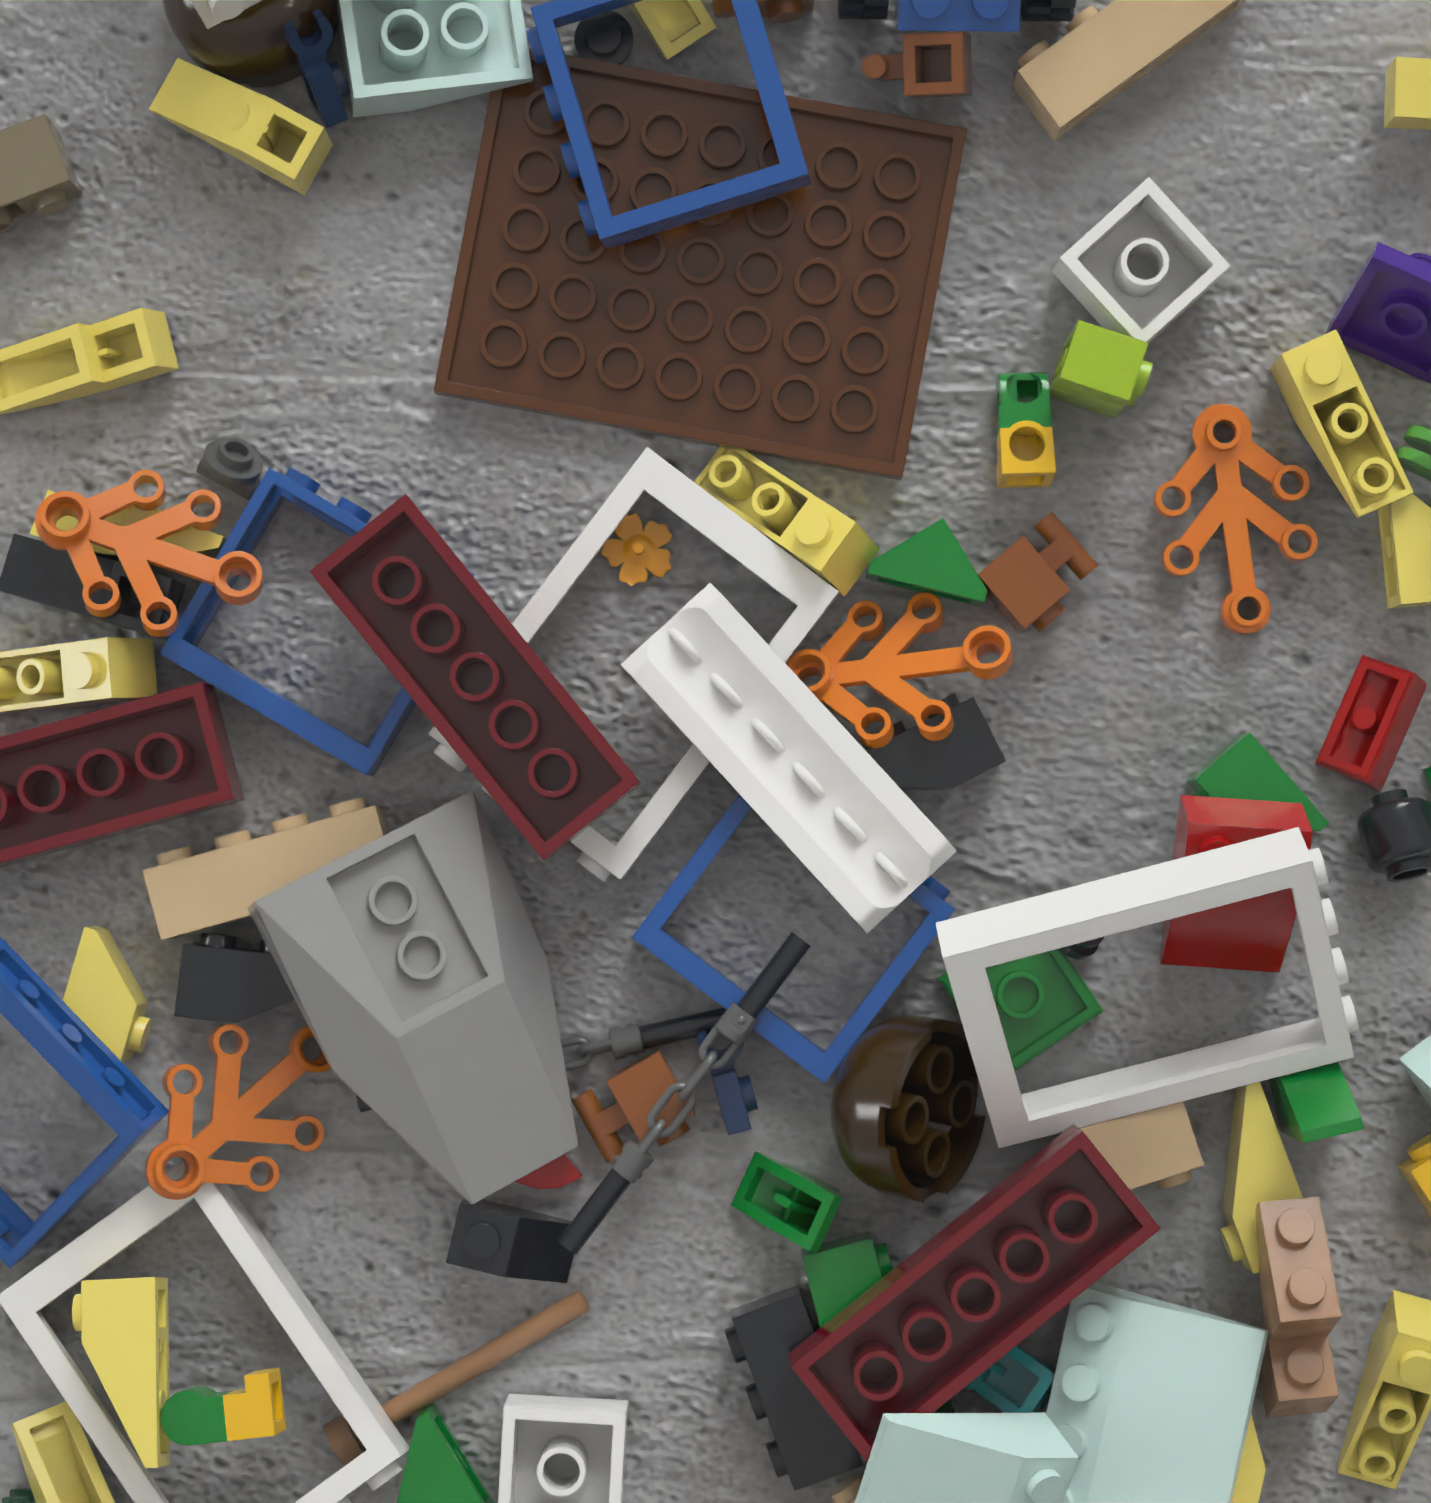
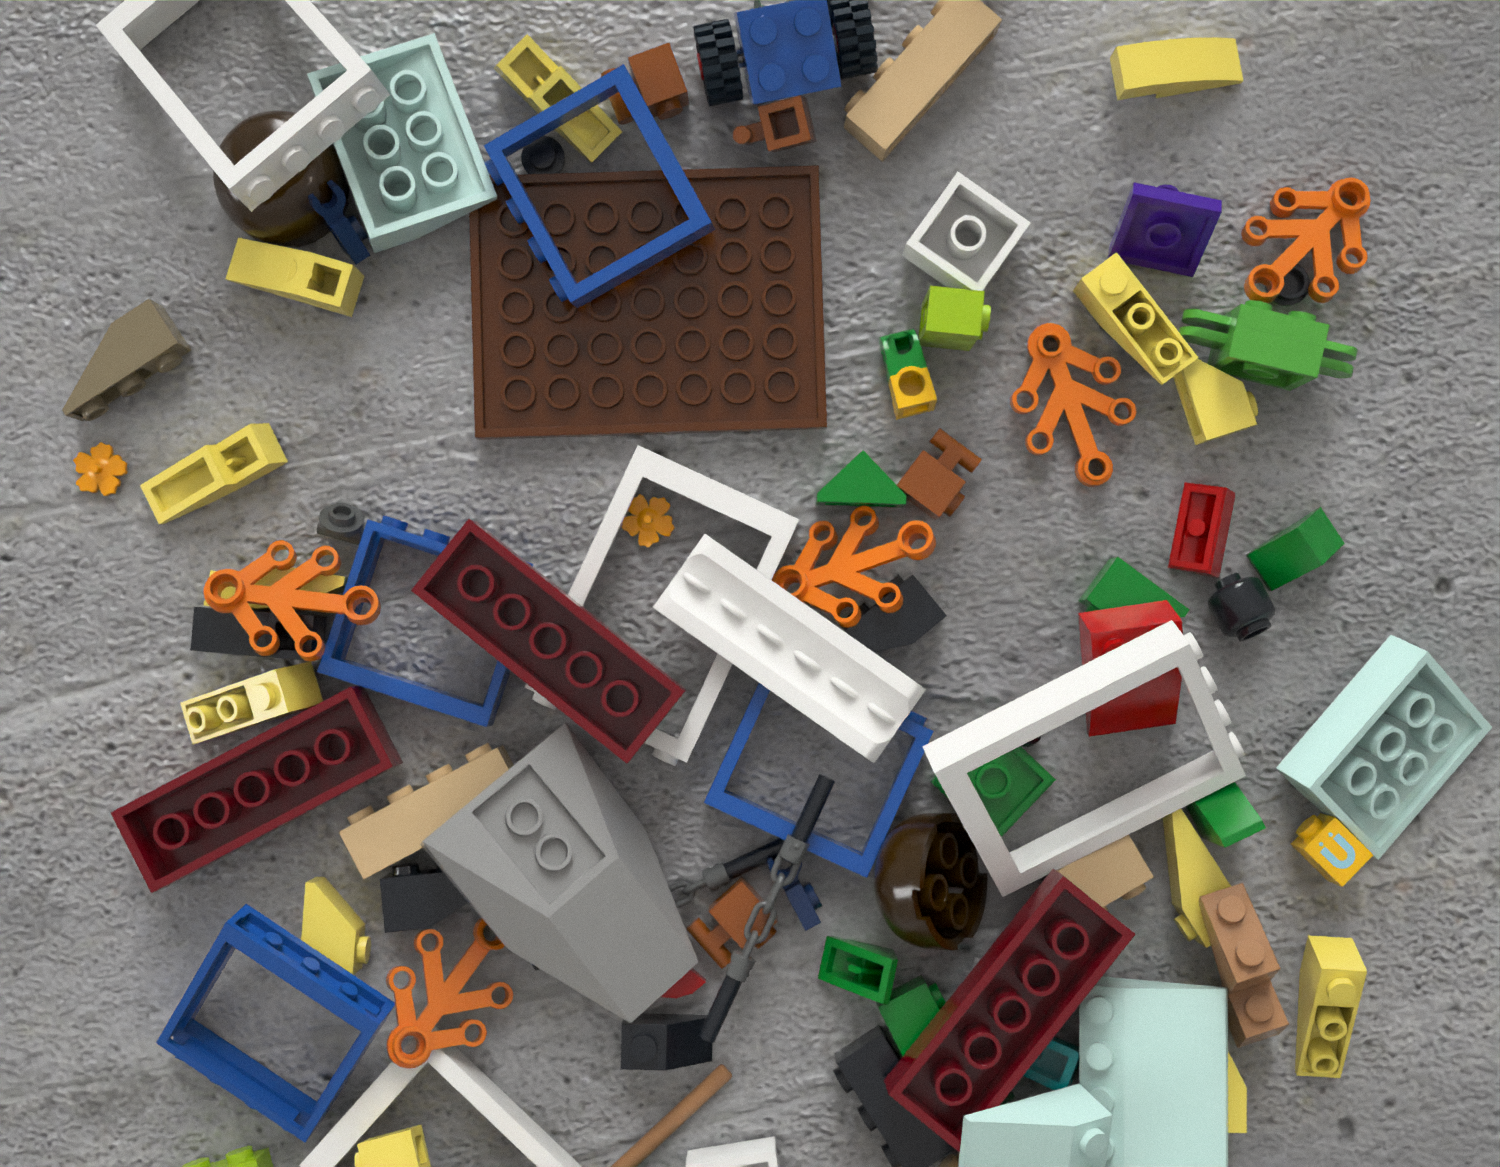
camera: 15 degrees left, 0 degrees up
(790, 517) = (751, 473): light yellow slope -> none

